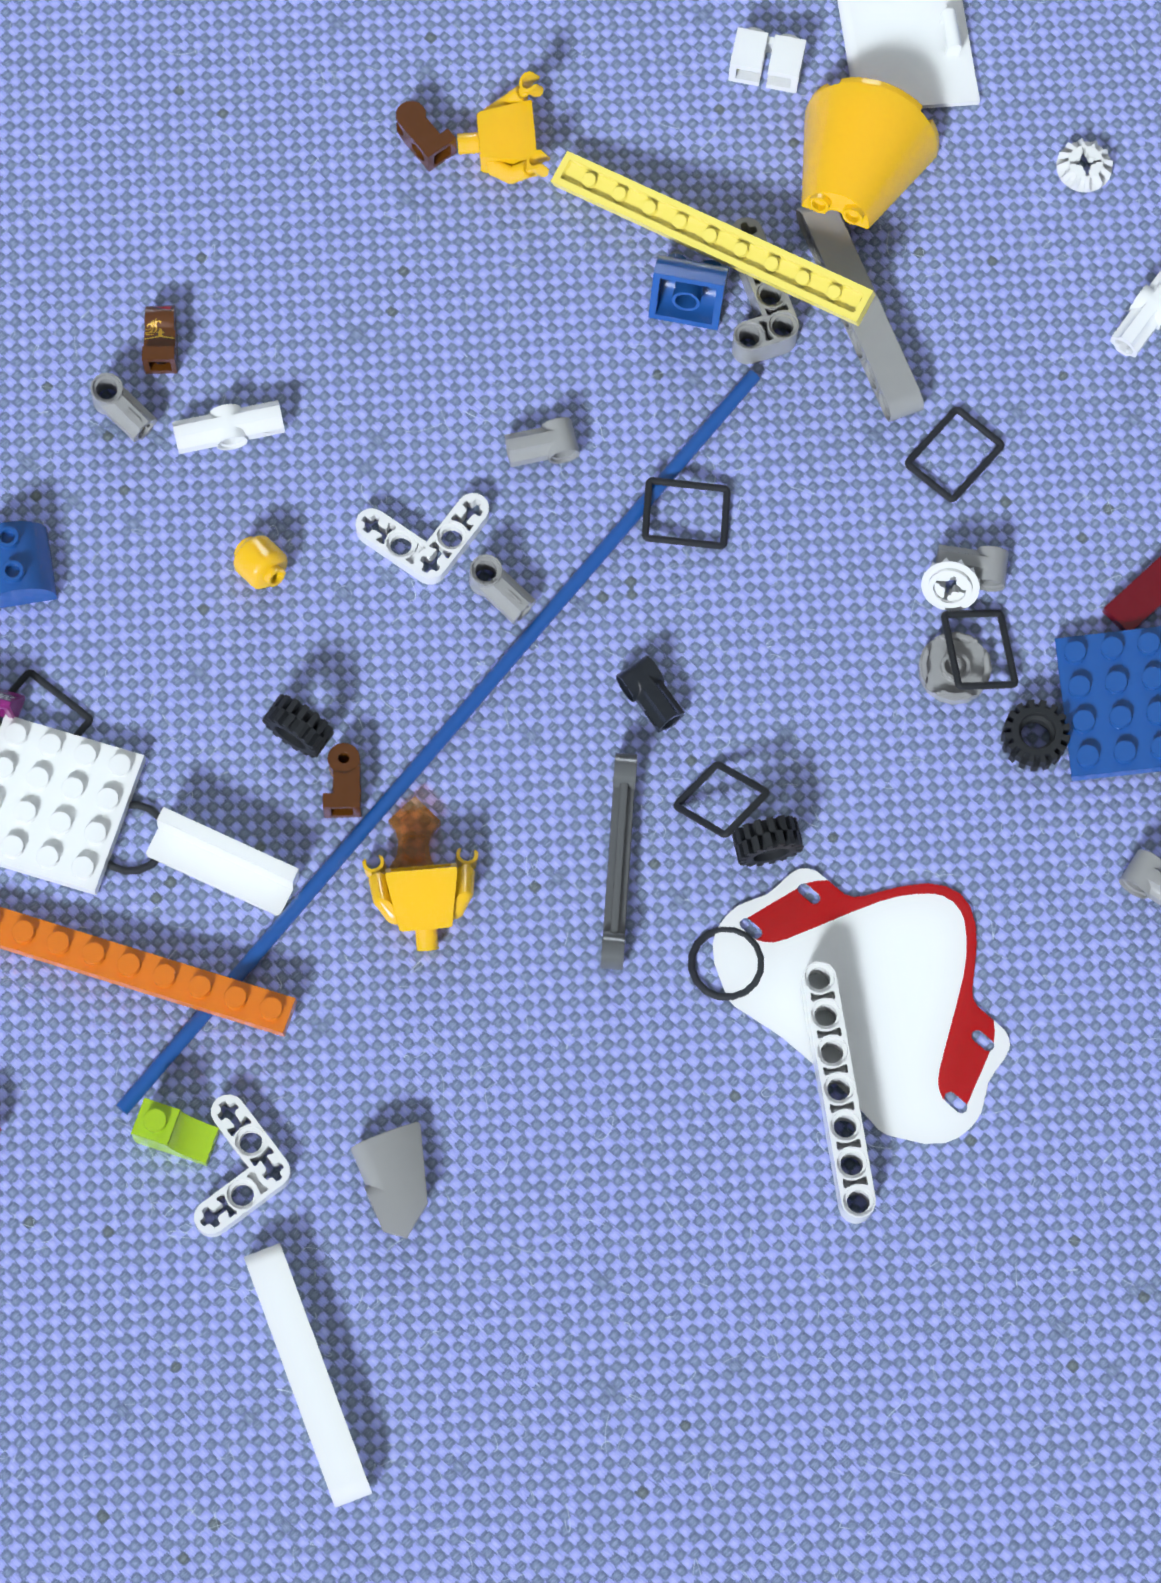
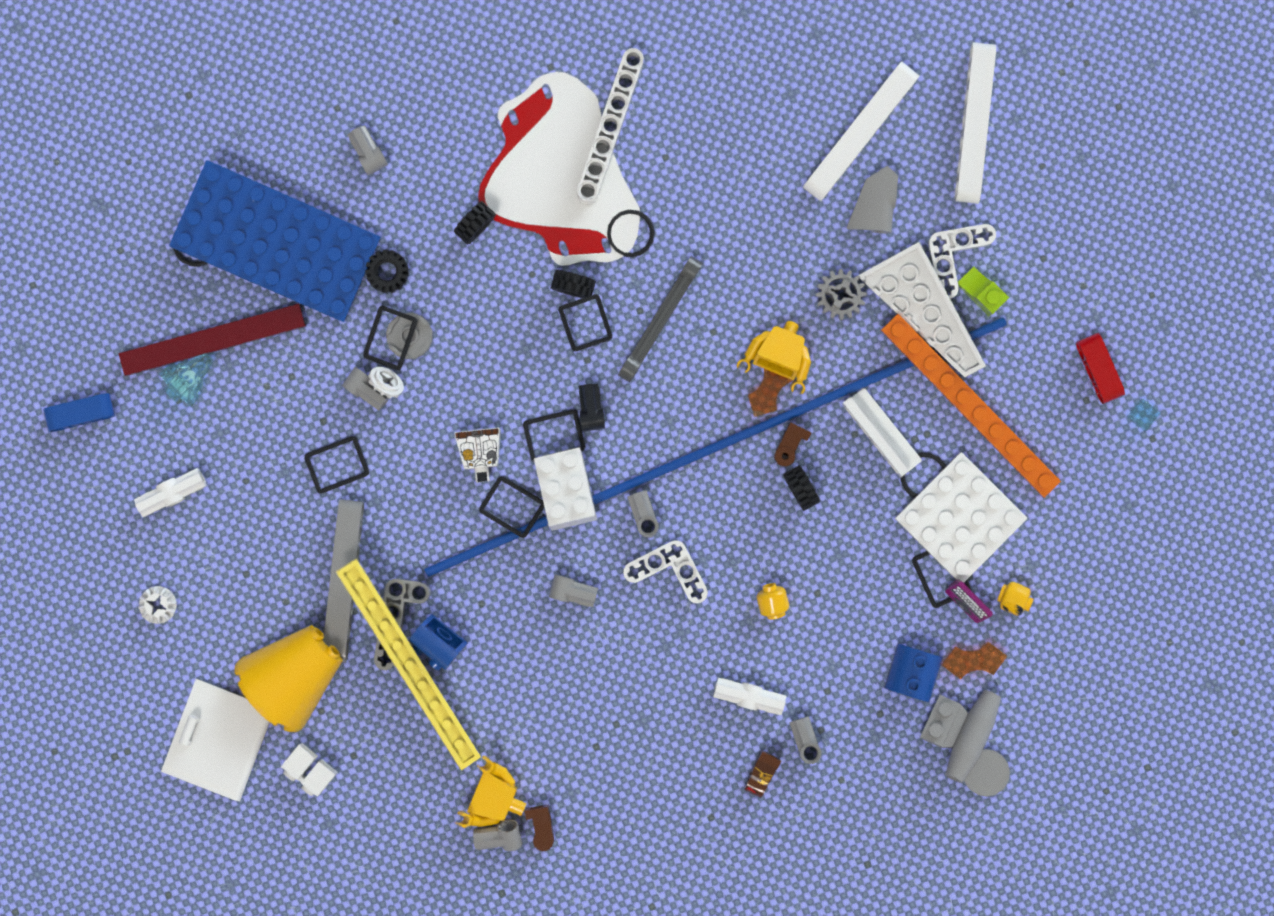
camera: 150 degrees left, 15 degrees up
(257, 1071) = (918, 296): none -> white wing
(393, 1023) = (851, 298): none -> light grey gear
(467, 99) = (504, 835): none -> light grey piece
(469, 1275) = (861, 131): none -> white beam
(625, 564) = (565, 489): none -> white brick
(699, 659) = (551, 416): none -> black piece
(772, 561) = (479, 450): none -> torso
(952, 855) = (474, 222): none -> black tyre

